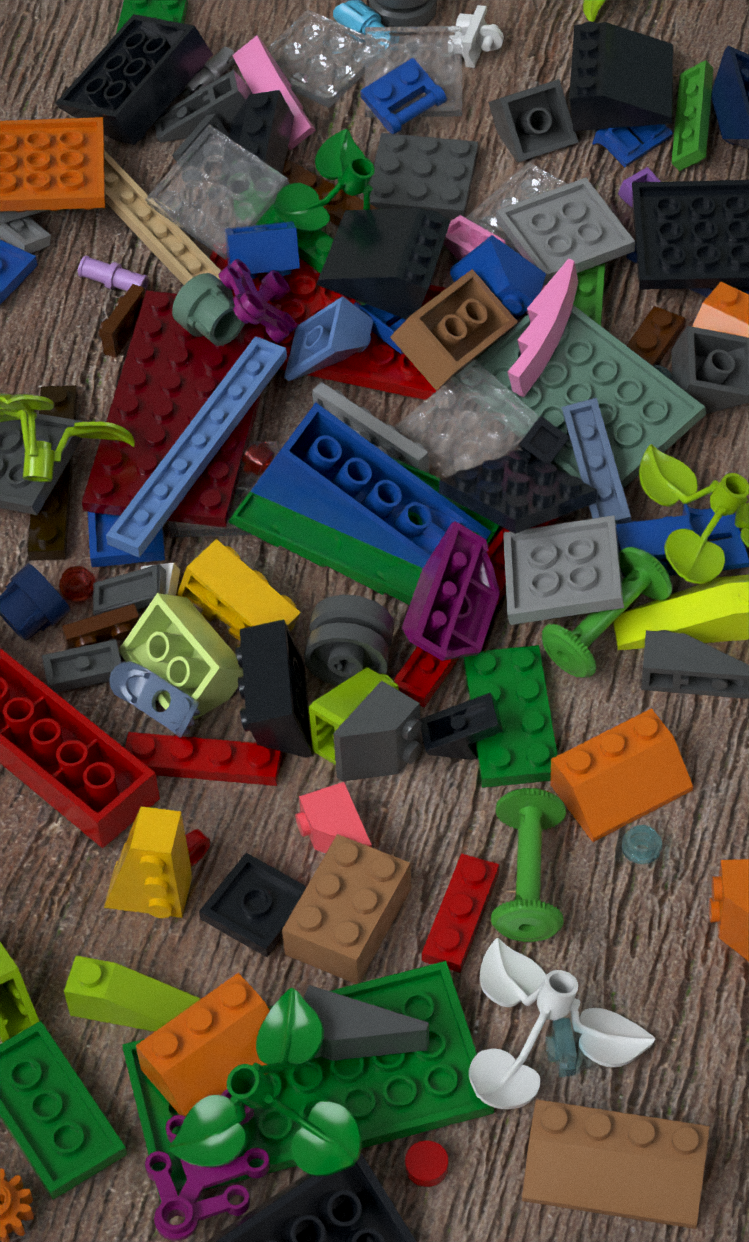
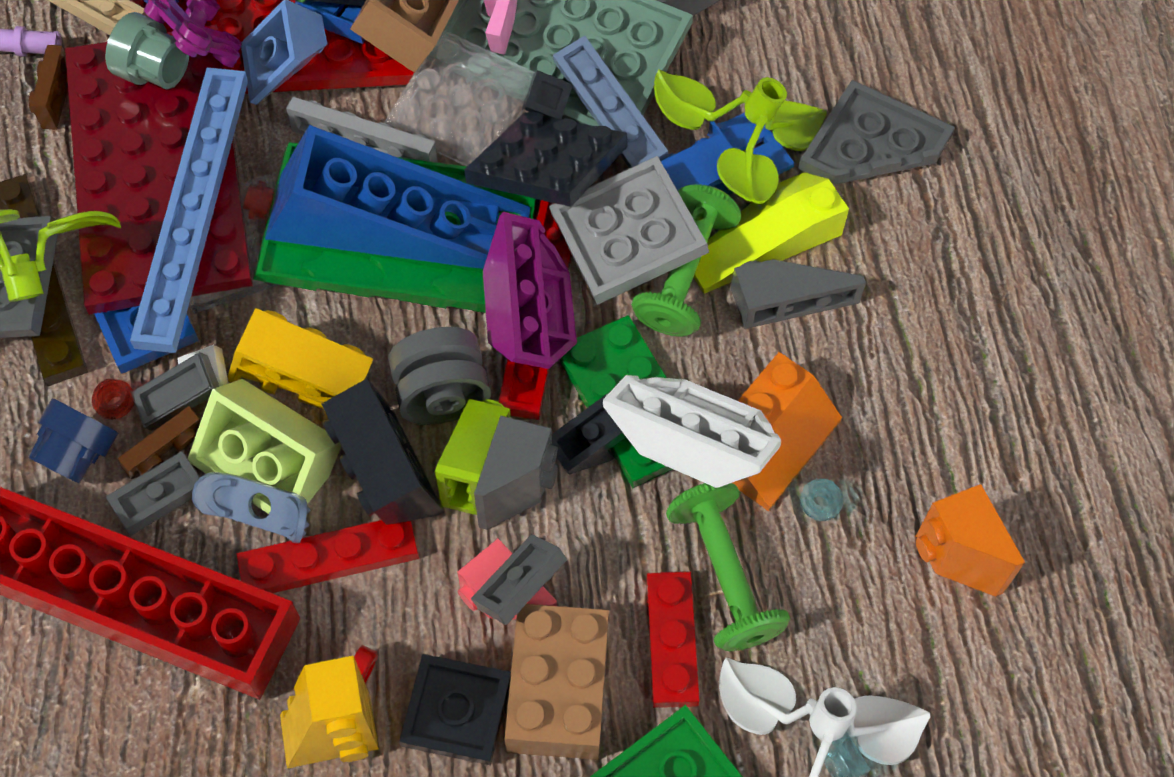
camera: 25 degrees left, 10 degrees up
(353, 809) = (519, 579): none -> dark grey plate
(536, 737) = (692, 428): none -> white wedge

